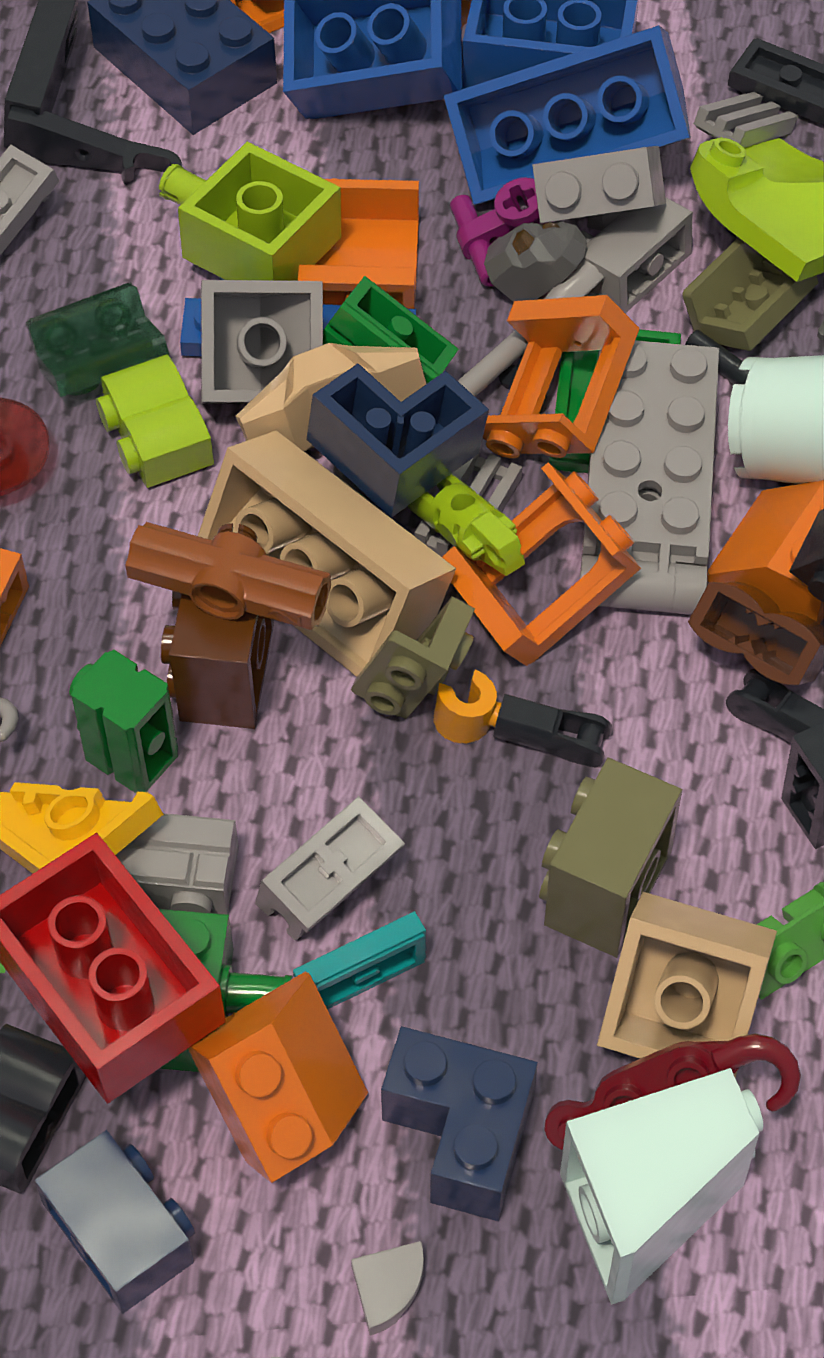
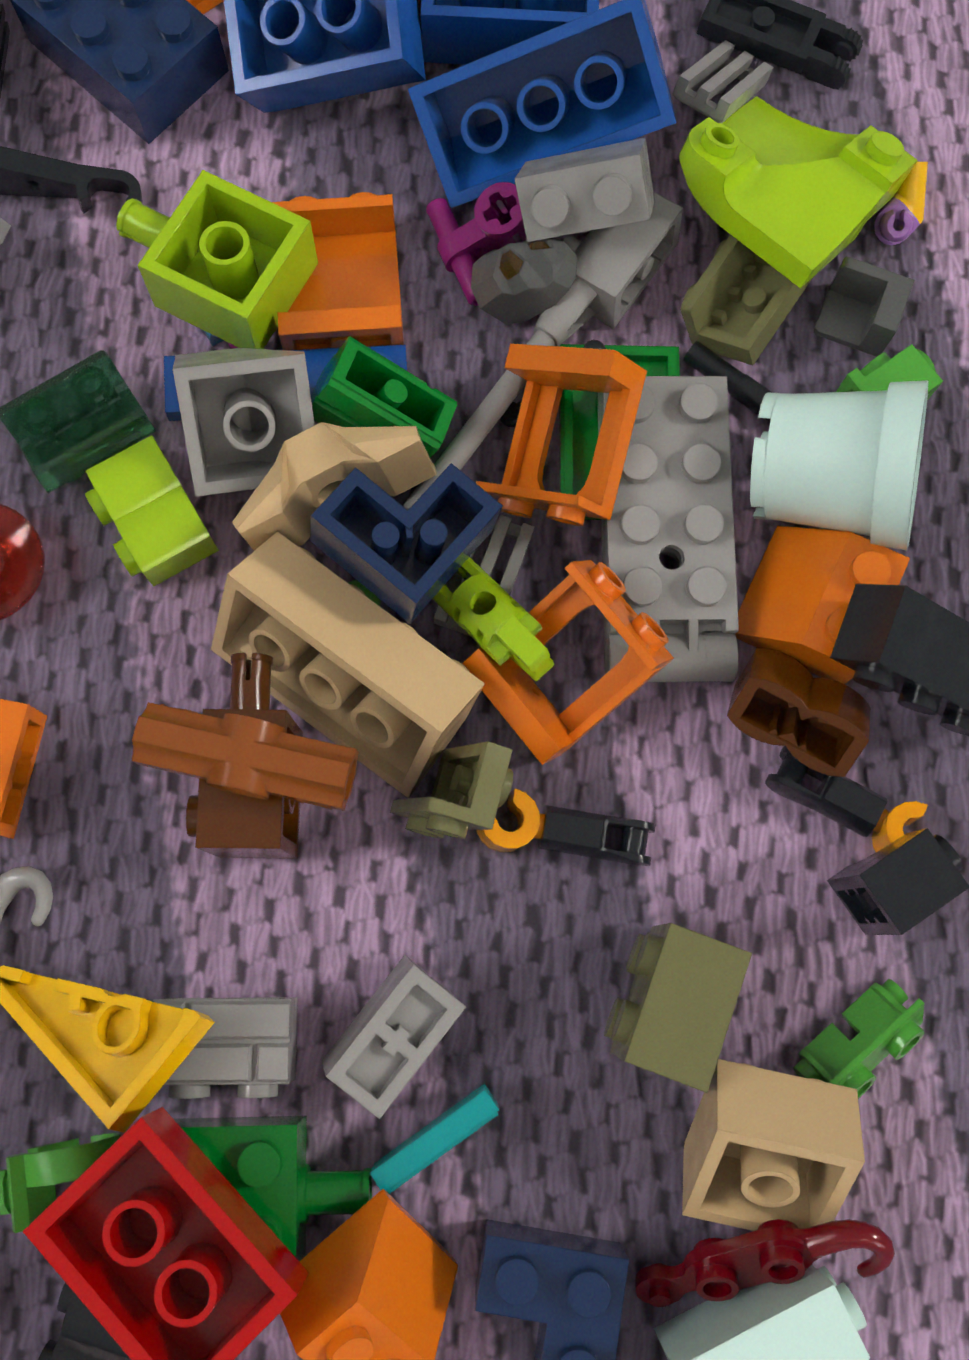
camera: 10 degrees left, 20 degrees up
(124, 720) = (157, 898): green brick -> none

